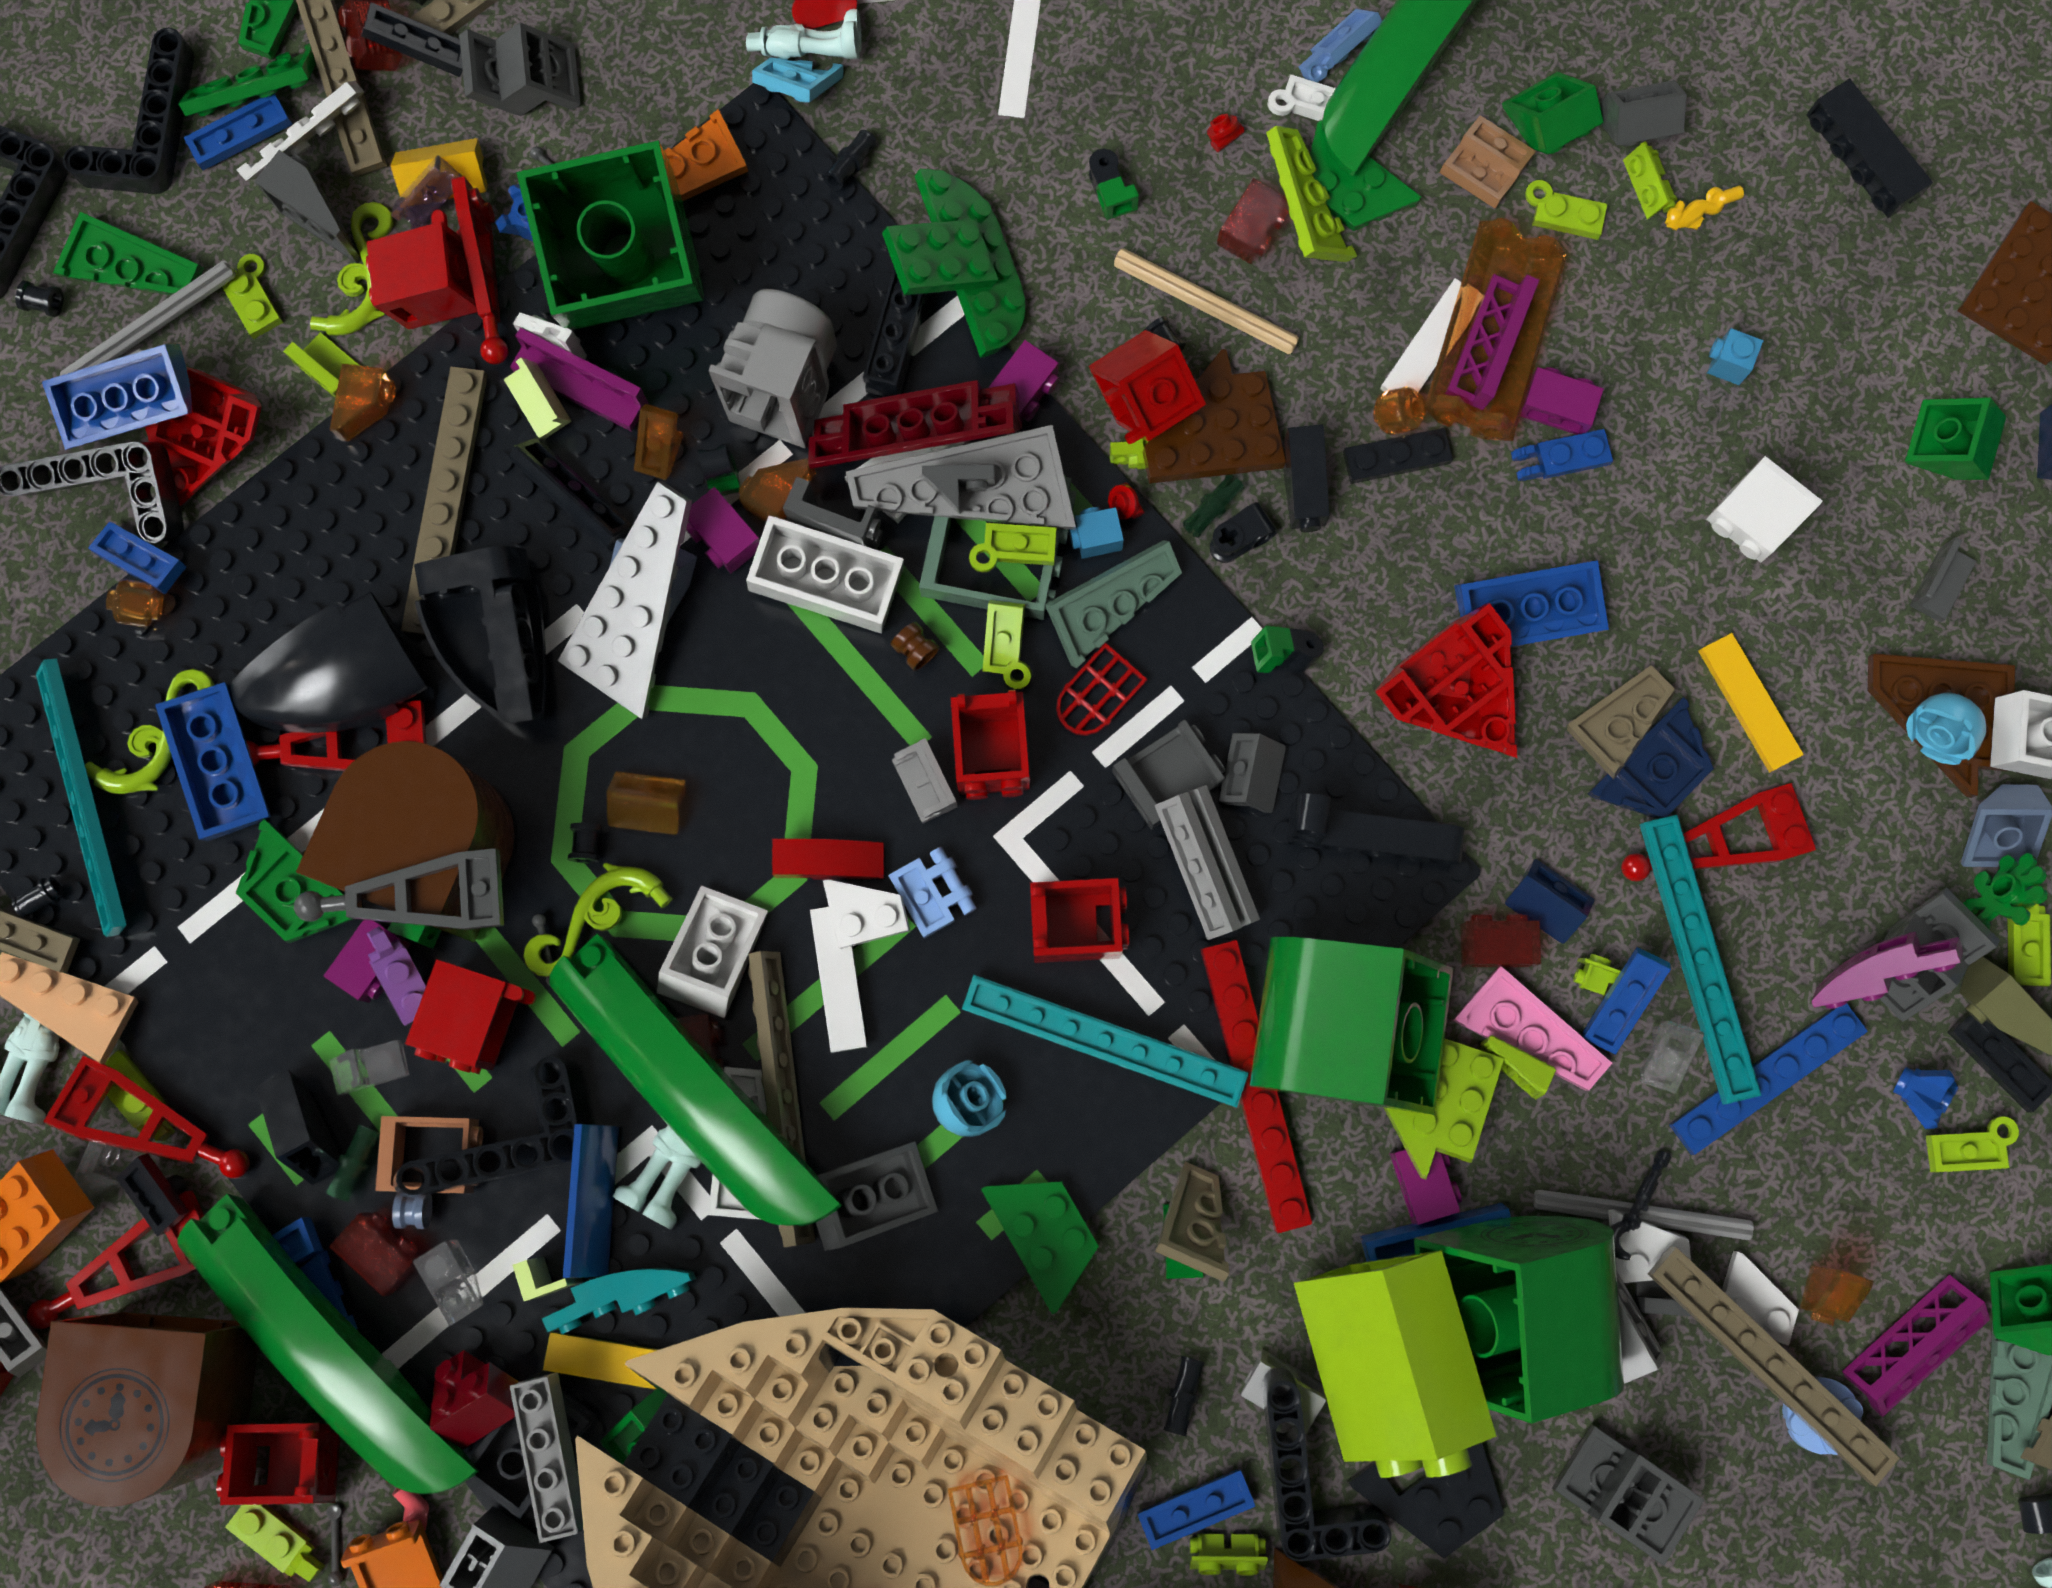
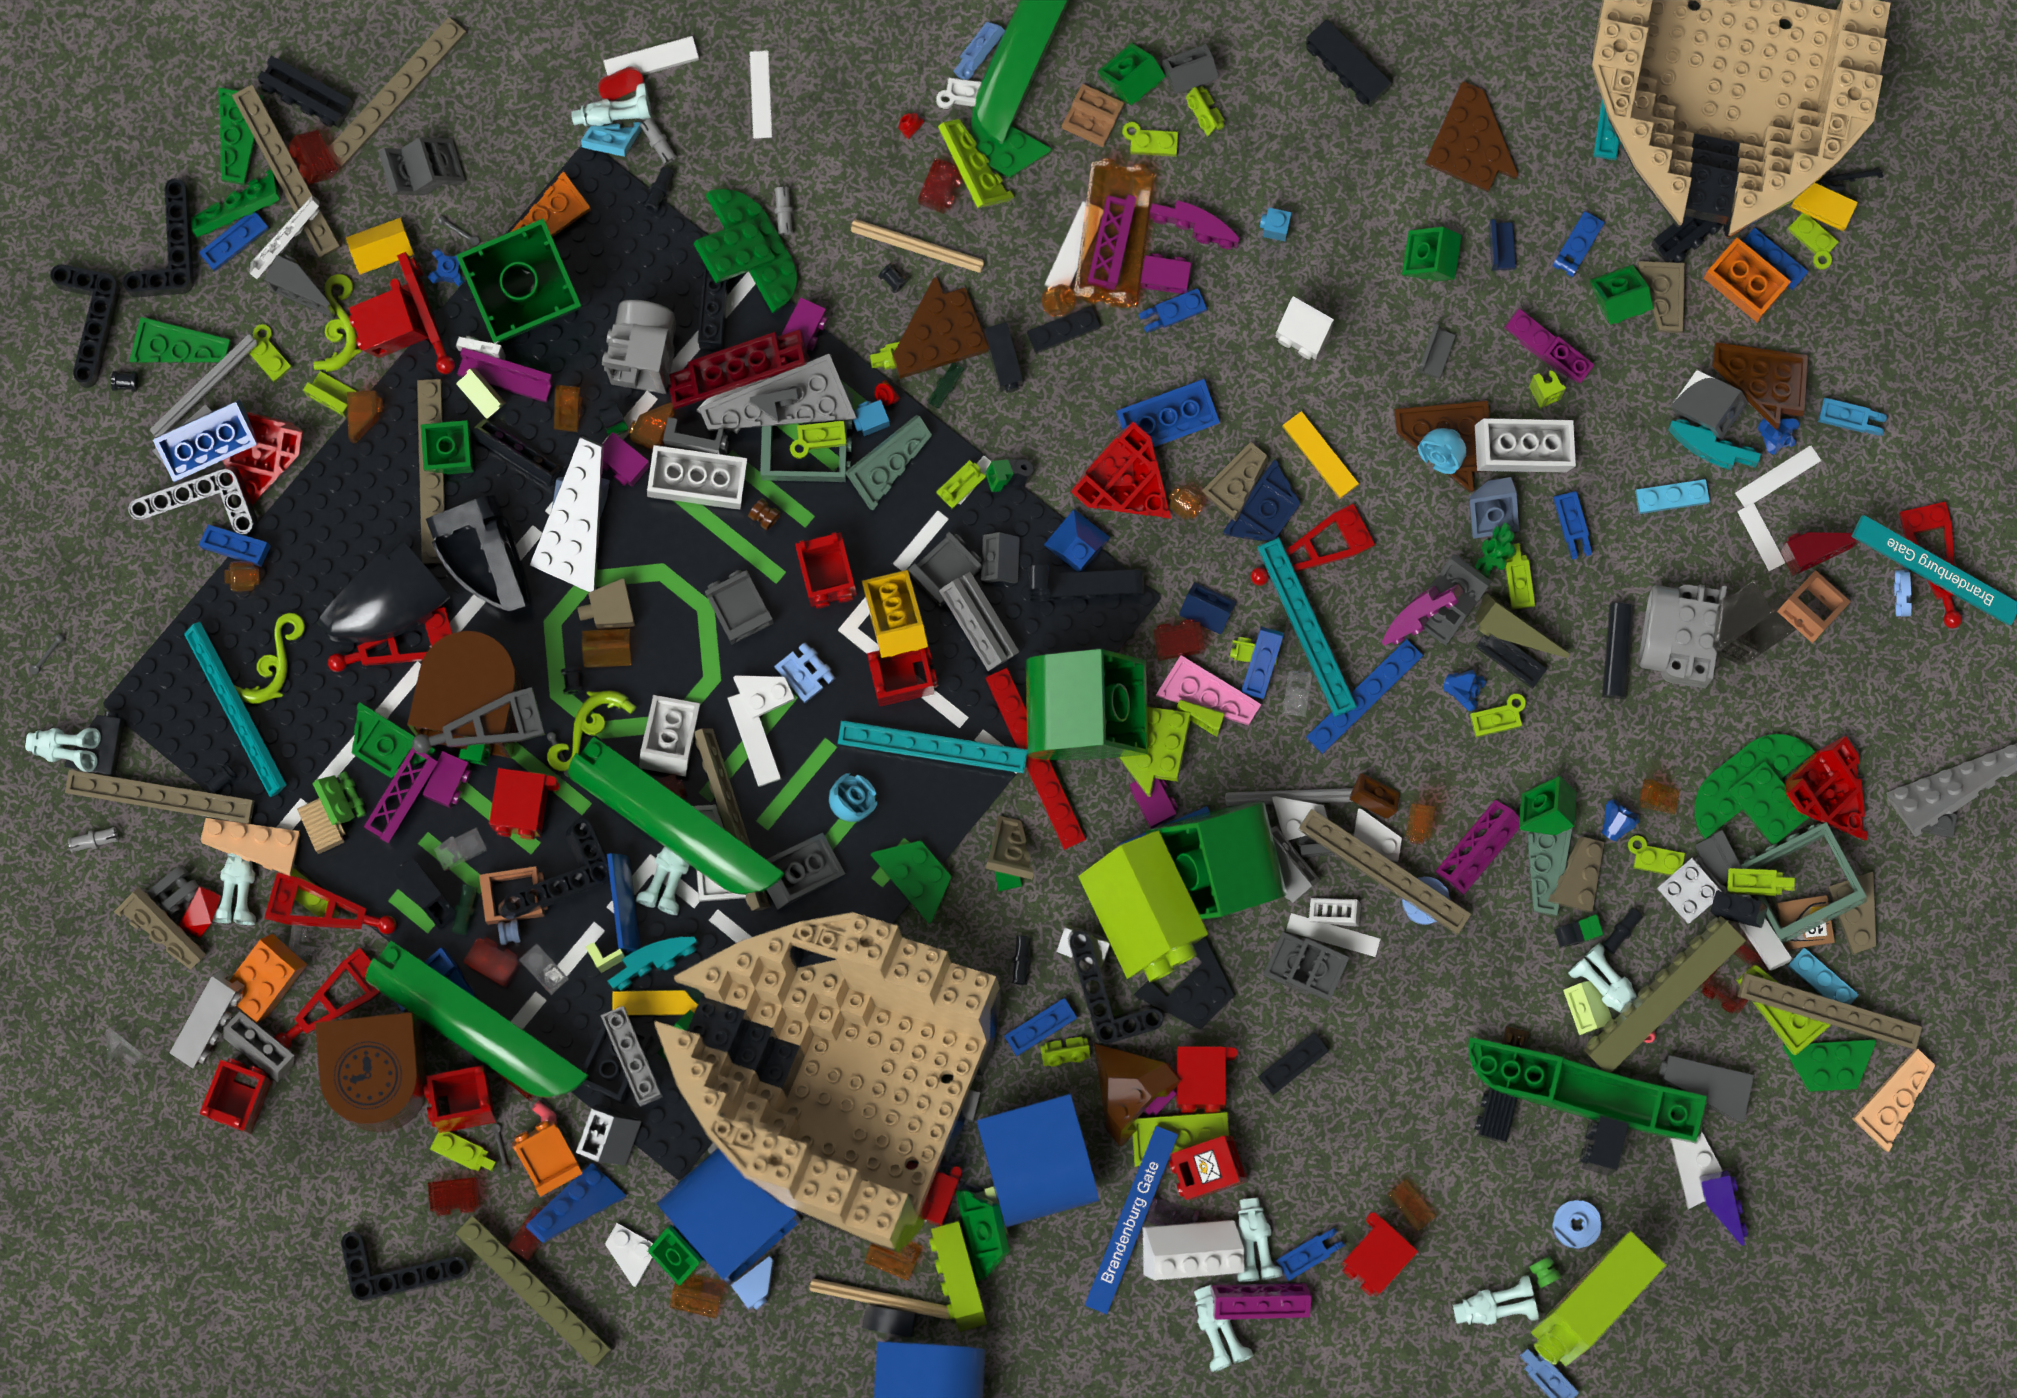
camera: 10 degrees left, 0 degrees up
(154, 1194) = (340, 951): black tile -> none
(167, 994) = (319, 828): none -> tan brick
(191, 961) = (334, 800): none -> bright green plate
(213, 762) = (319, 670): blue slope -> none
(298, 981) = (407, 801): none -> magenta fence
(396, 974) = (470, 786): medium lavender hinge -> none
(413, 39) = (345, 158): black plate -> none
(426, 193) = (376, 264): hinge -> none
(470, 468) = (447, 447): none -> green slope
(470, 1399) = (575, 1034): dark red brick -> none
(661, 742) = (609, 606): none -> dark tan torso
(827, 859) = (733, 663): red slope -> none
(852, 775) = (738, 606): none -> dark grey panel
(862, 93) = (658, 141): none -> light grey pin
(924, 781) = (786, 601): light grey hinge -> none
(994, 1514) = (912, 1041): clear orange window -> none
(1004, 642) = (822, 501): lime hinge -> none
(1022, 219) = (783, 211): none -> light grey pin
(1083, 831) = (894, 614): none -> yellow brick
(1099, 678) = (889, 514): red window -> none
(1108, 185) = (837, 176): leg -> none
(1147, 386) = (886, 315): red container -> none
(1213, 652) = (961, 484): none -> lime hinge
(1246, 531) = (970, 398): black piece -> none
(1370, 767) = (1077, 541): none -> blue slope
(1541, 737) = (1186, 502): none -> clear orange head
(1628, 339) = (1205, 225): none -> magenta slope
(1644, 1194) = (1291, 784): black piece -> none
(1669, 1442) = (1333, 935): none -> white sticker
(1692, 214) = (1236, 129): yellow animal -> none
(1710, 1413) = (1334, 919): none -> white slope
(1767, 1238) = (1375, 796): none -> reddish brown slope

